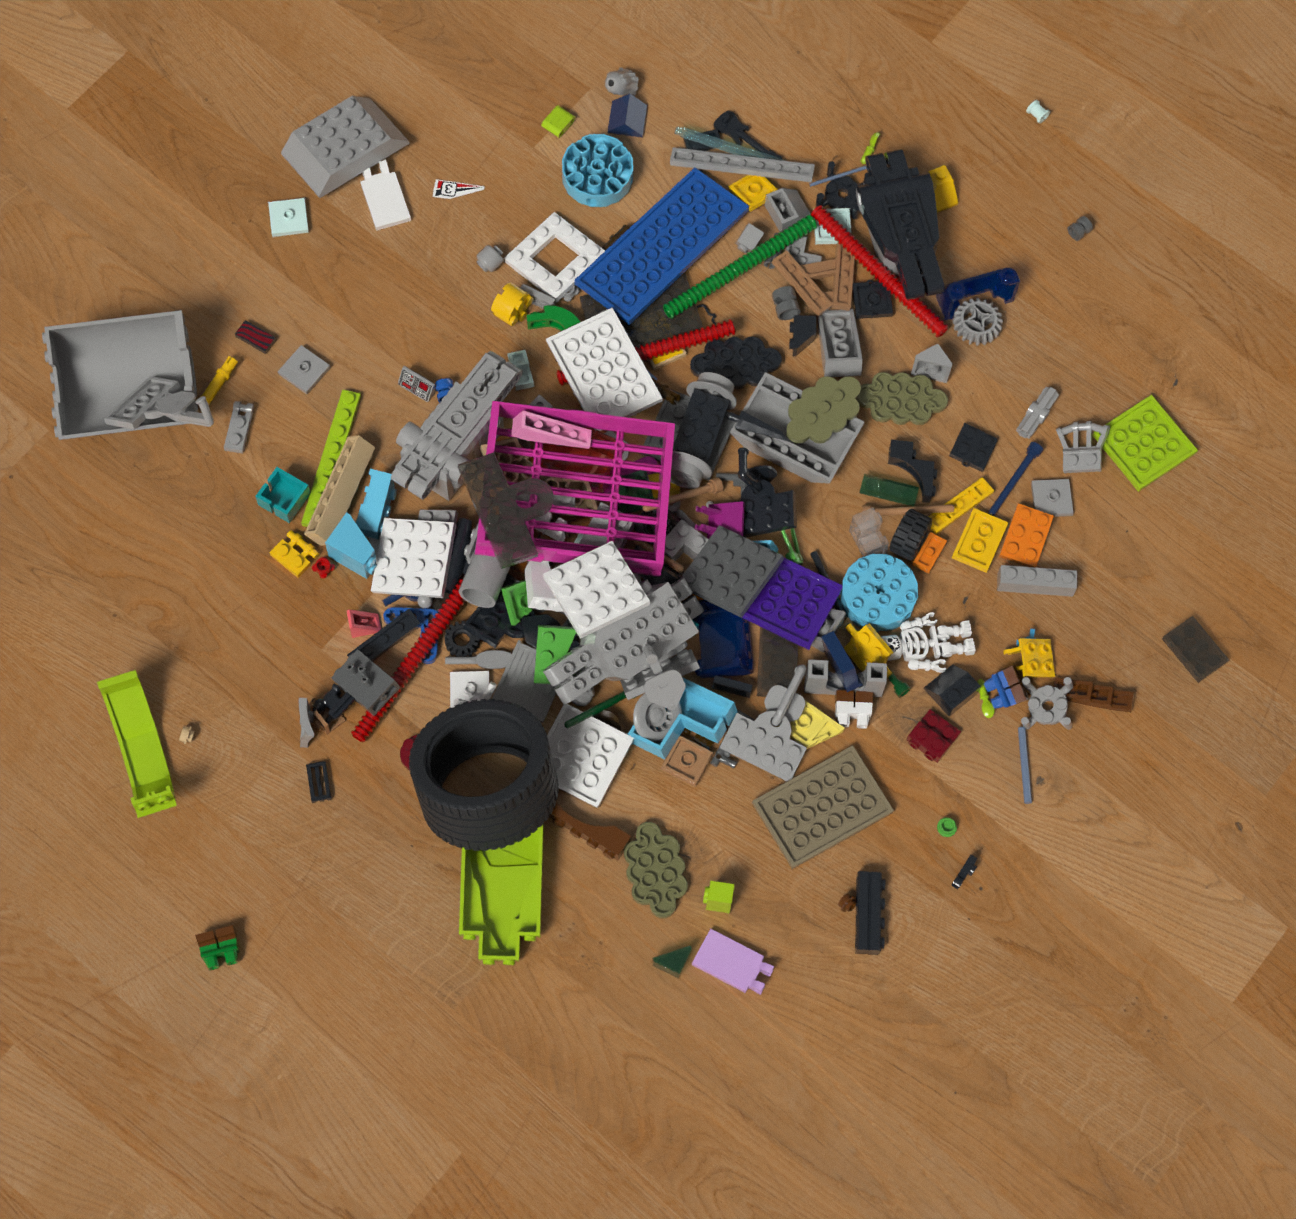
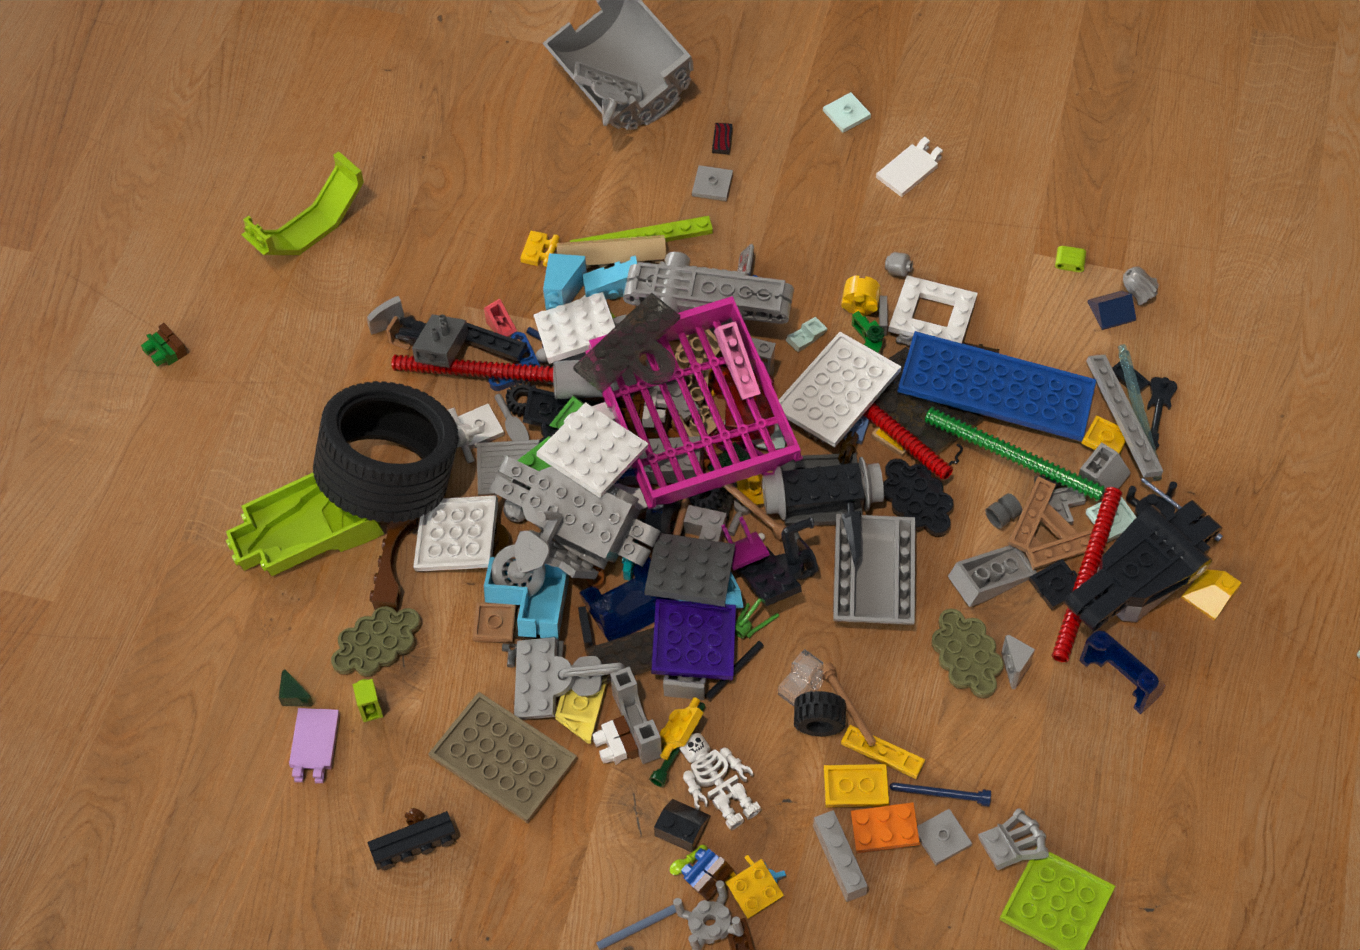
camera: 70 degrees right, 10 degrees down
(186, 734) = (340, 245): tan plate -> none
(219, 379) = (662, 130): yellow pin -> none
(238, 427) = (633, 163): light grey plate -> none
(286, 496) = (584, 220): teal piece -> none
(317, 567) = (537, 273): red plate -> none
(321, 797) = (344, 356): black tile -> none
(342, 144) = (939, 115): light grey slope -> none
(450, 189) = (950, 211): sticker -> none
(561, 316) = (875, 337): none -> dark green plate
(596, 709) = (492, 516): dark green piece -> none
(597, 170) = (1038, 305): medium azure brick -> none
(748, 238) = (1051, 450): light grey brick -> none
(803, 332) = (981, 539): black slope -> none
(823, 409) = (904, 581): olive plate -> none
(840, 662) = (650, 701): dark blue container -> none
(870, 149) = (1218, 517): lime piece -> none
(883, 575) = (751, 733): medium azure brick -> none
(889, 490) = (862, 681): clear green plate -> none
(903, 455) = (899, 704): black arch -> none
(929, 552) = (816, 744): orange plate -> none
(933, 736) = (624, 827): dark red plate -> none
(946, 827) = (535, 878): bright green plate -> none
(968, 869) = (497, 913): black plate -> none
(973, 330) = (1092, 676): light grey gear -> none
(973, 447) = (954, 740): black plate -> none
(1037, 412) = (1027, 783): light grey piece -> none
(1081, 227) = (1257, 740): dark grey wheel -> none

